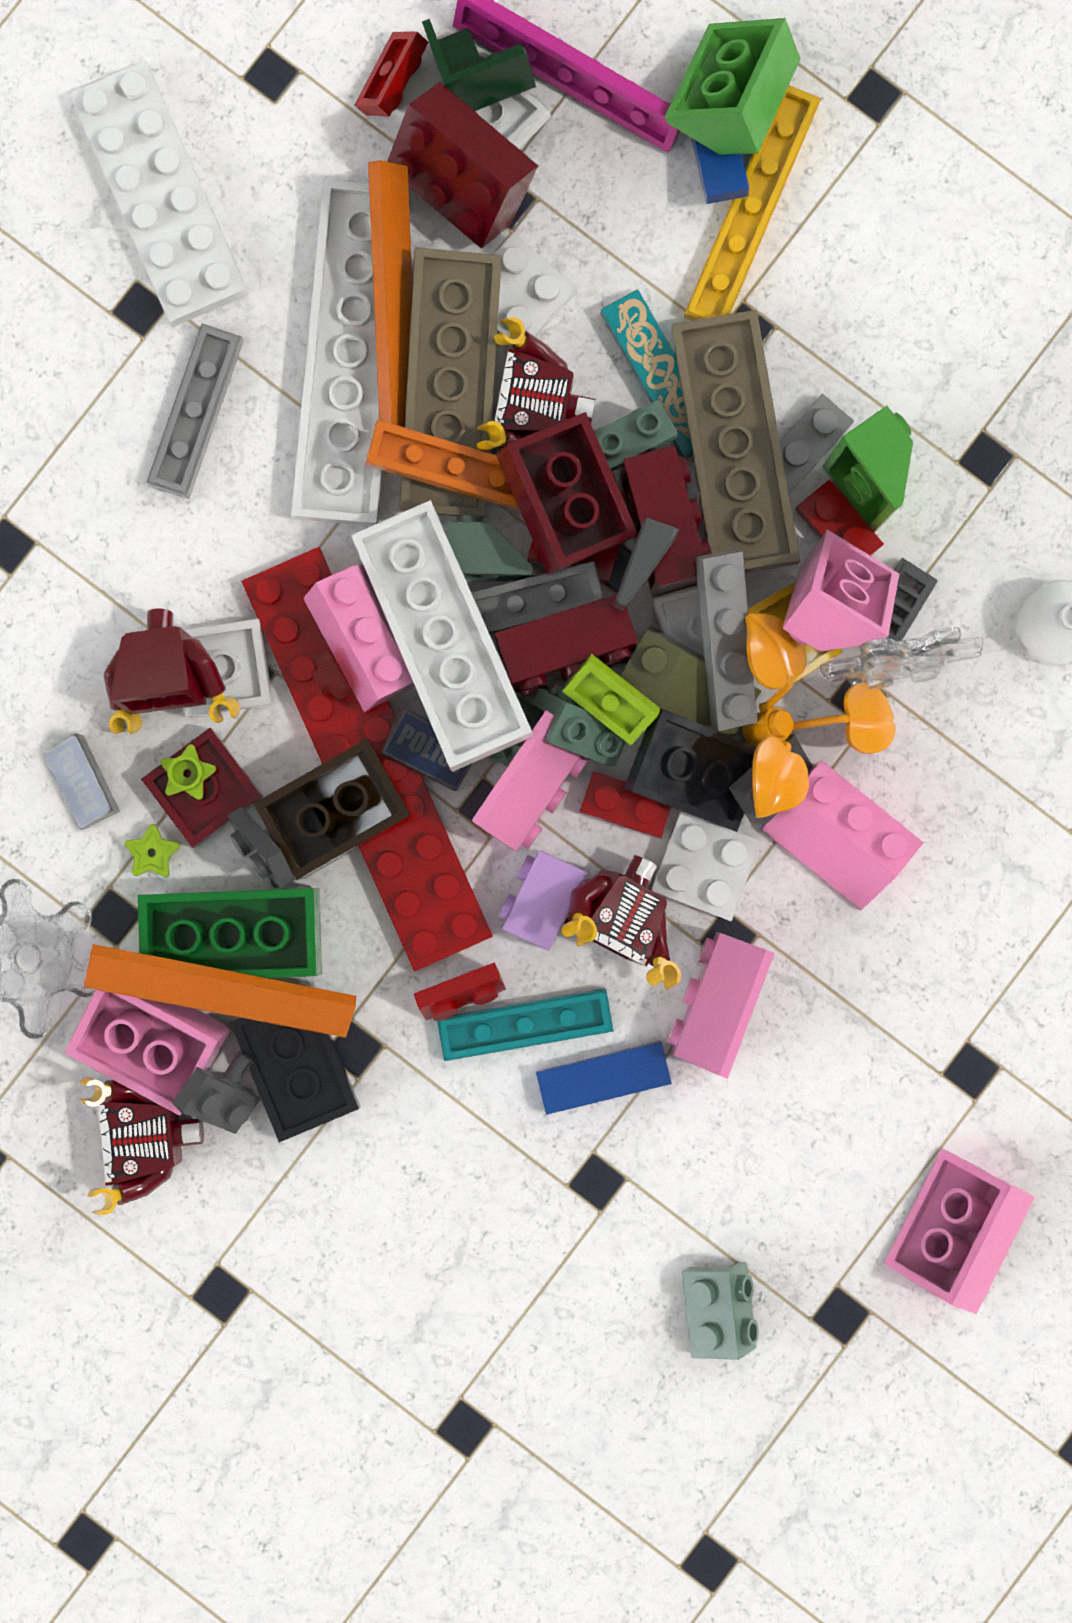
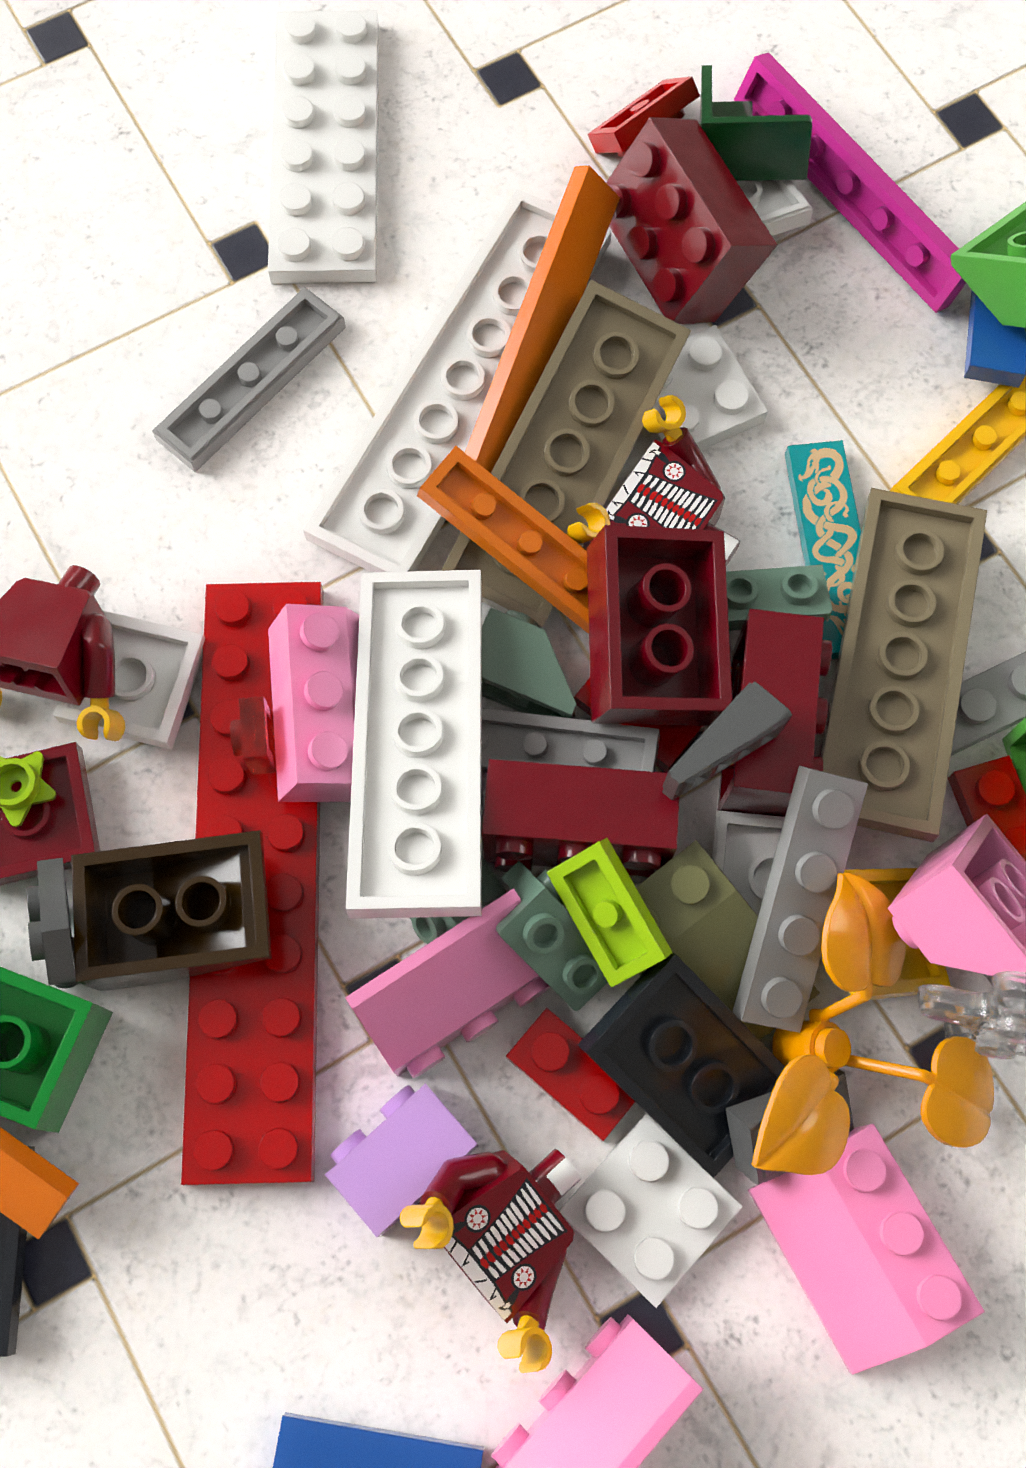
camera: 25 degrees right, 15 degrees down
(415, 746) = (318, 873): slope -> none
(472, 987) = (251, 1244): red plate -> none
(525, 1024) = (300, 1334): teal tile -> none

